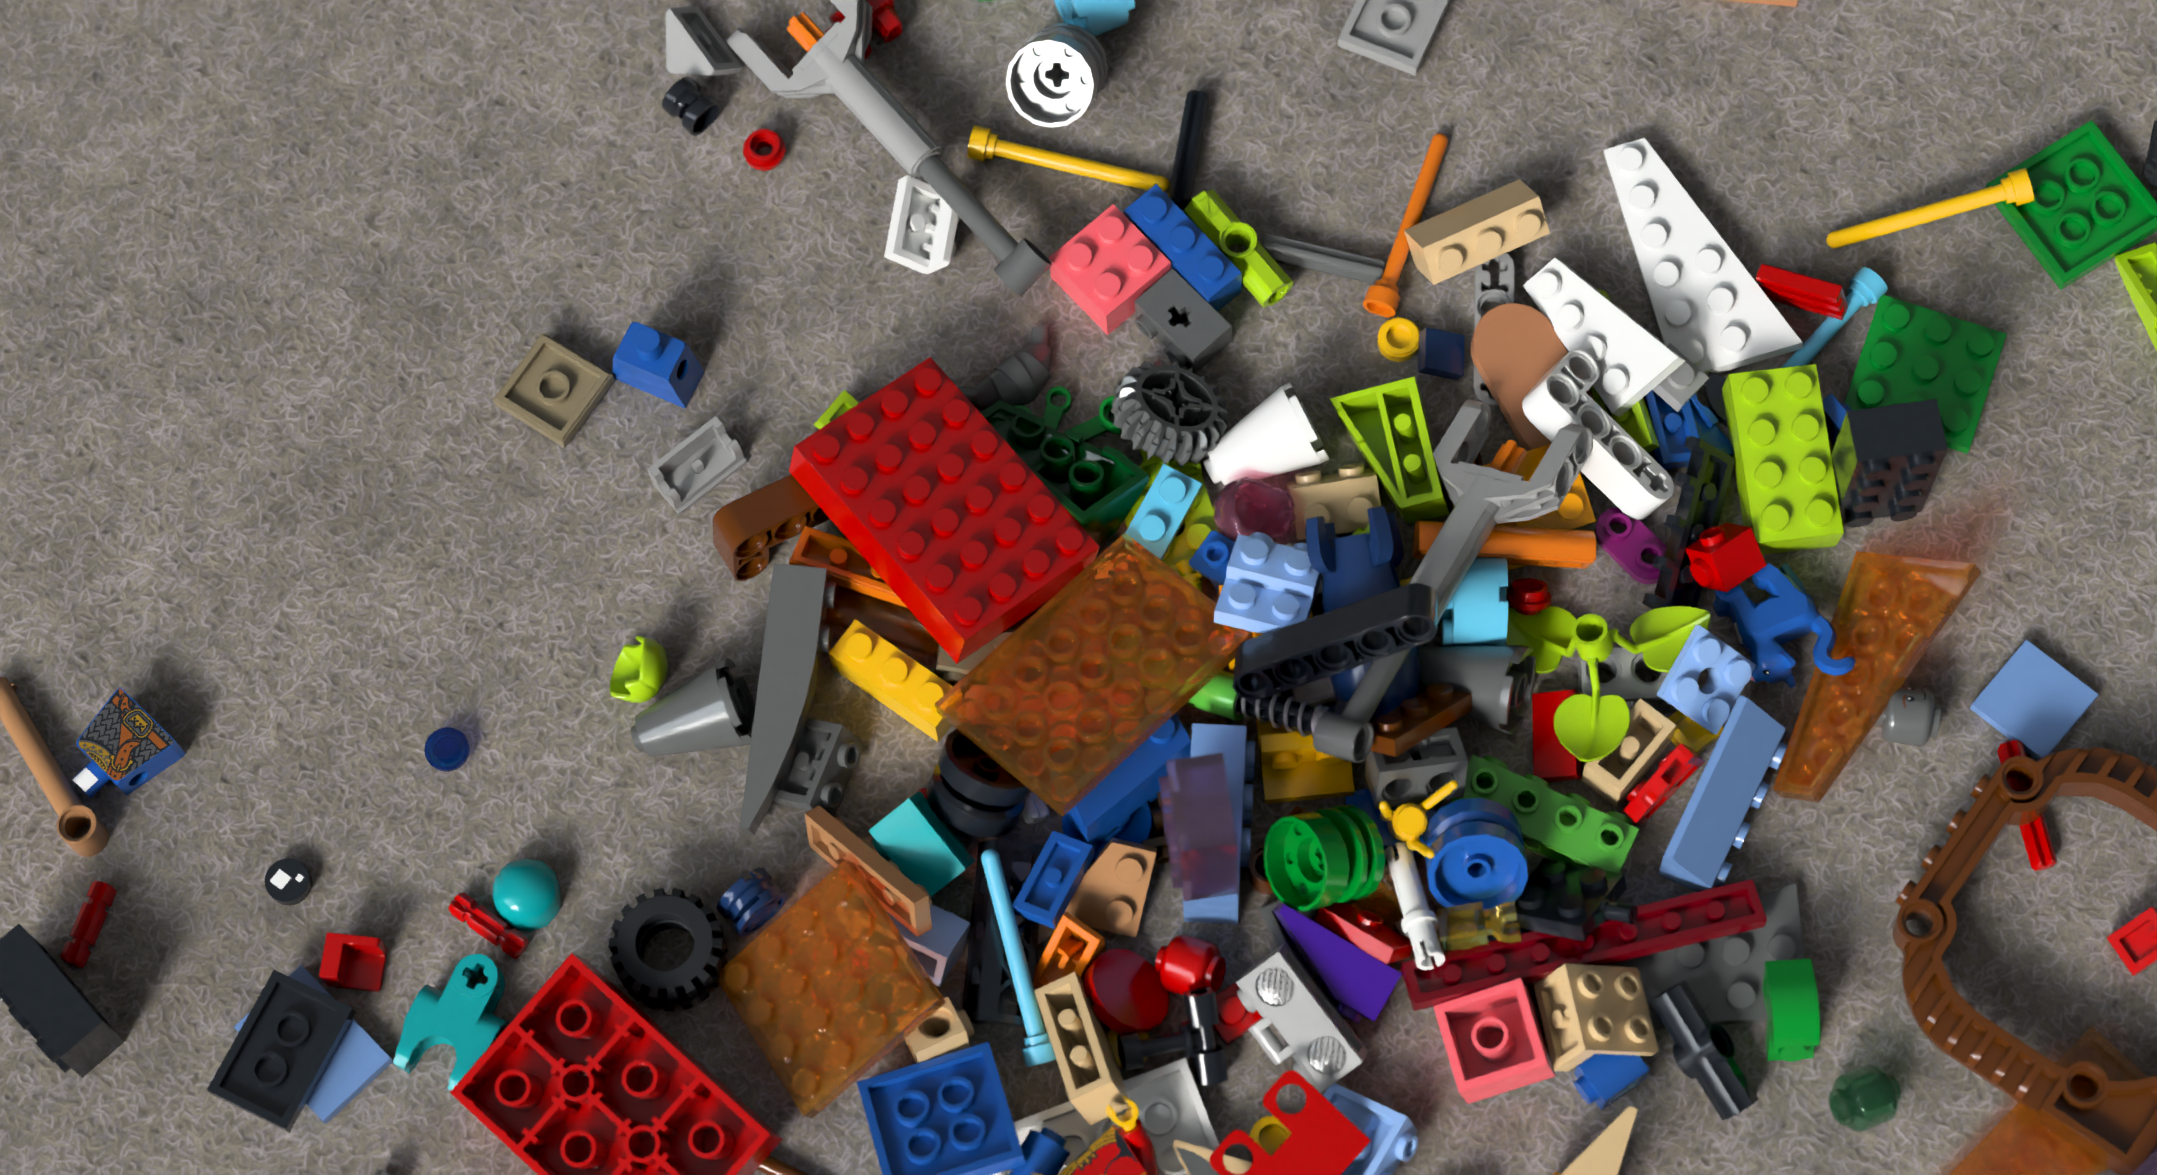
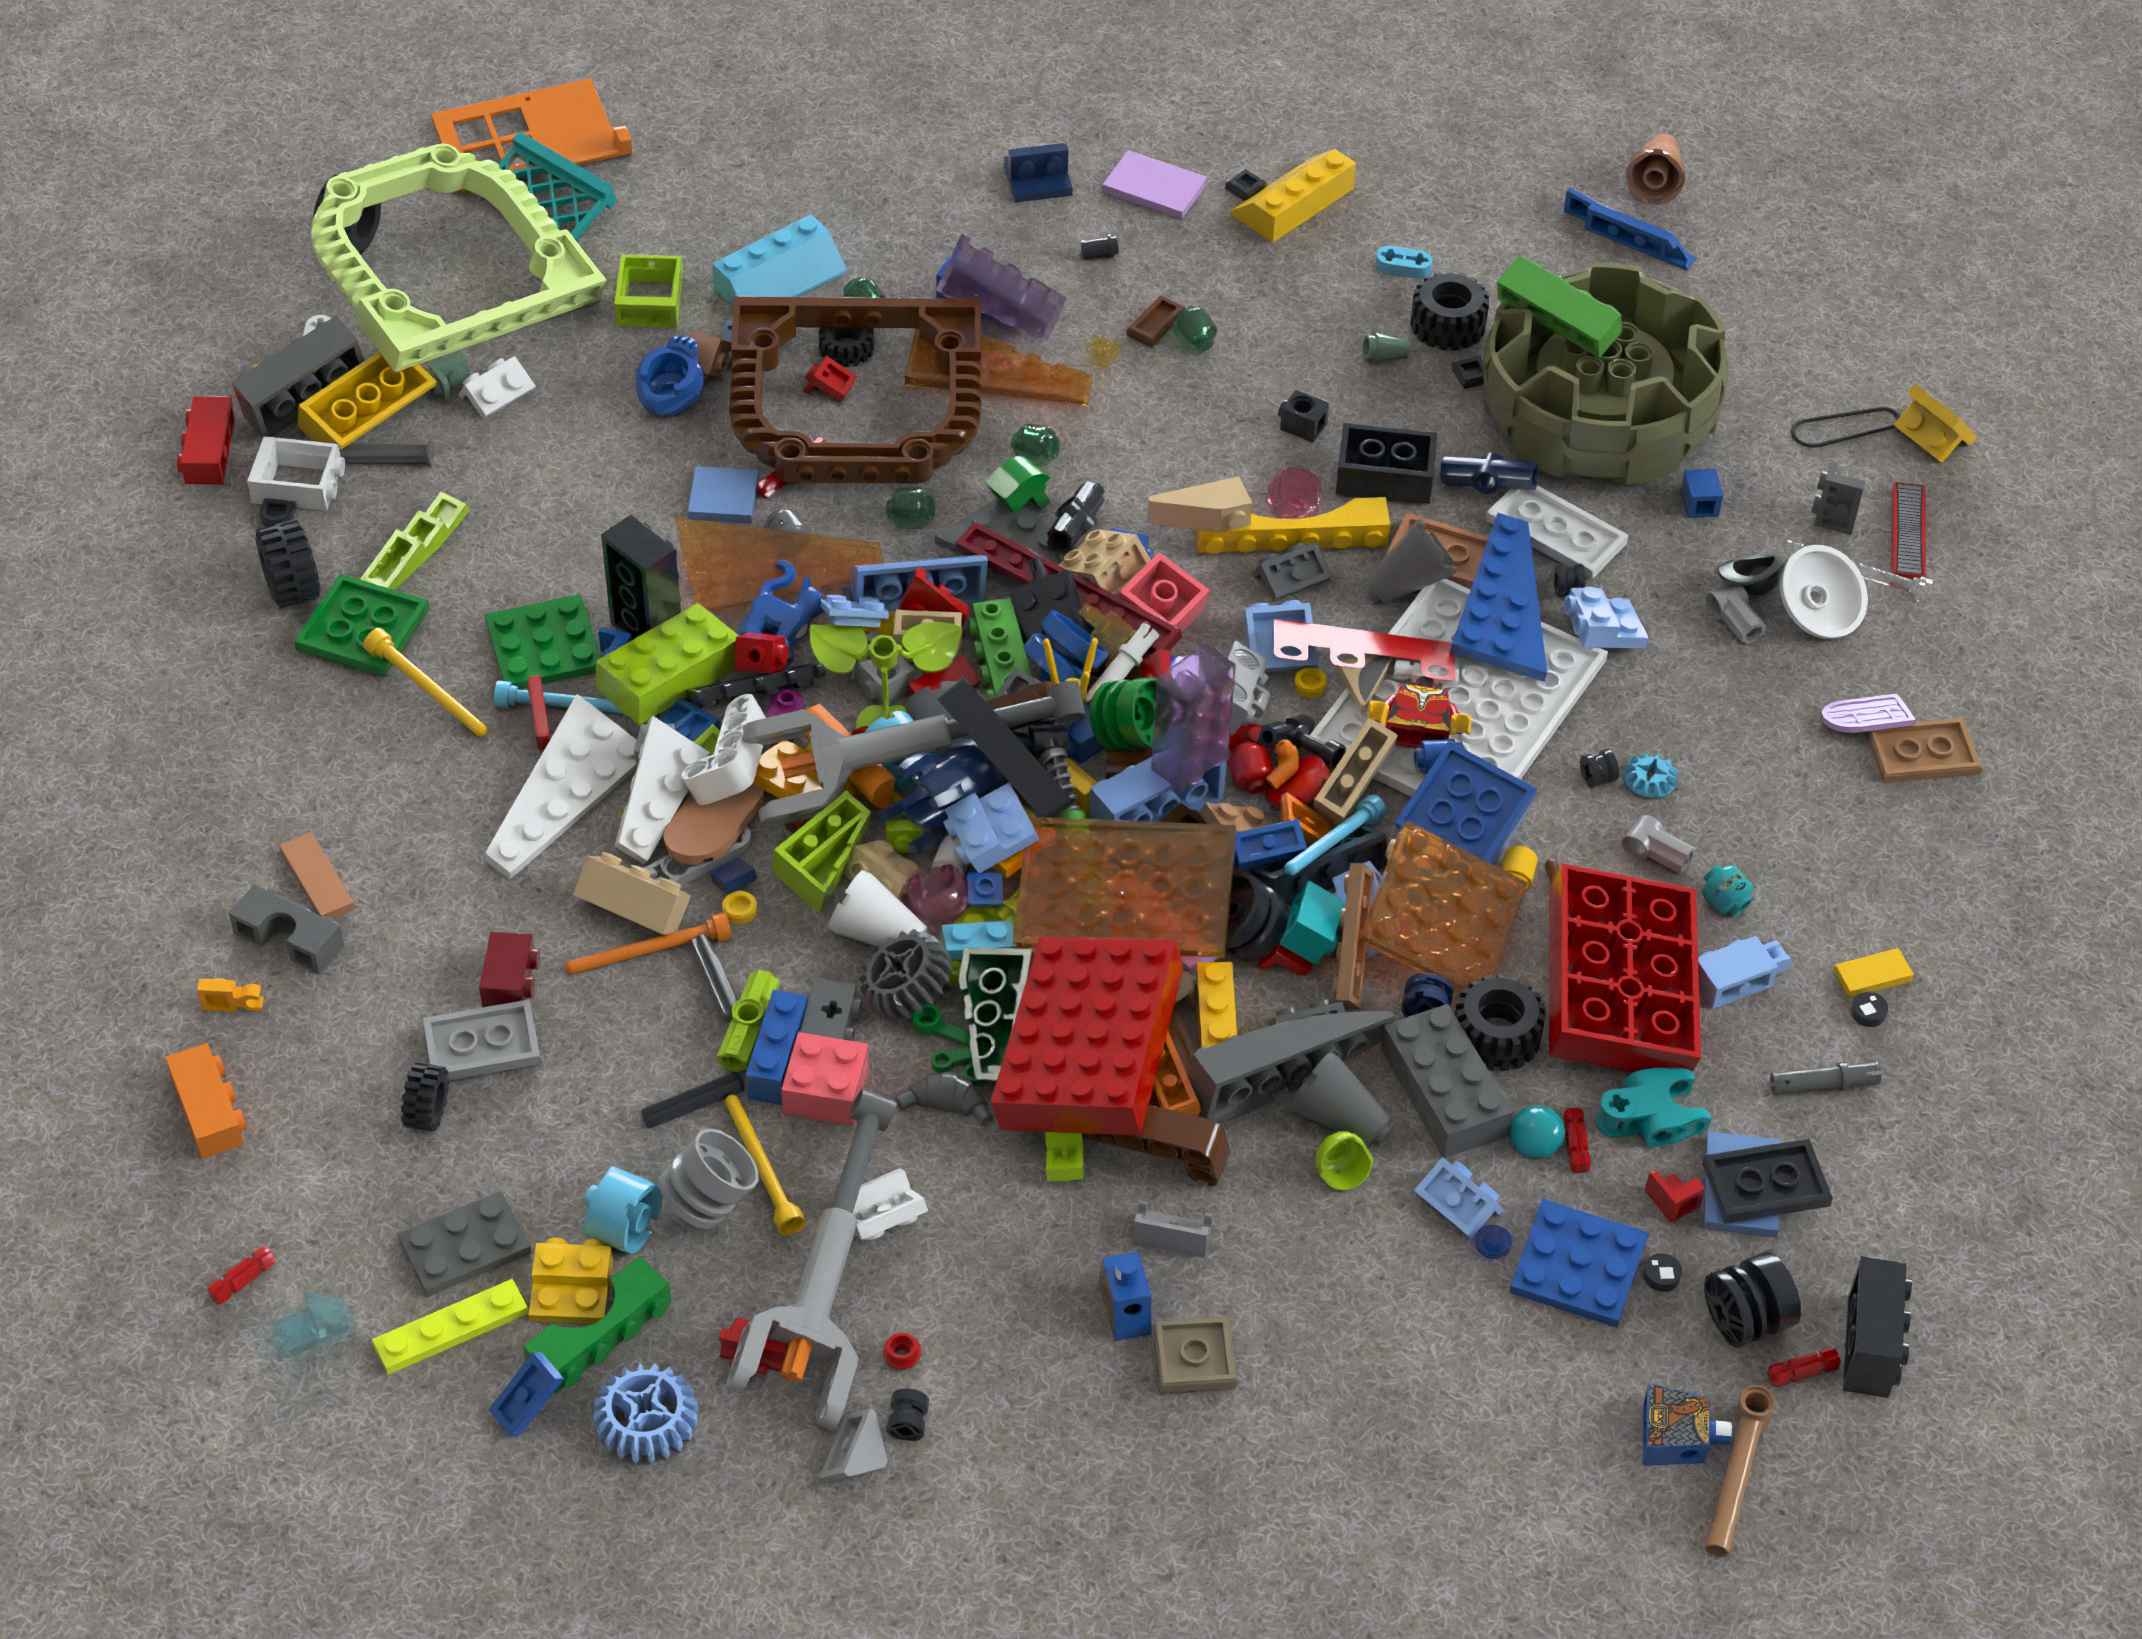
camera: 135 degrees left, 20 degrees down
(174, 902) = (1752, 1299): none -> black wheel
(362, 813) = (1579, 1262): none -> blue plate
(515, 756) = (1457, 1197): none -> light blue bracket
(644, 841) = (1446, 1081): none -> dark grey brick
(841, 1138) = (1521, 863): none -> yellow brick
(1154, 994) = (1287, 764): none -> orange arm
(1469, 72) = (508, 969): none -> dark red brick
(1855, 881) = (911, 508): none -> clear green head

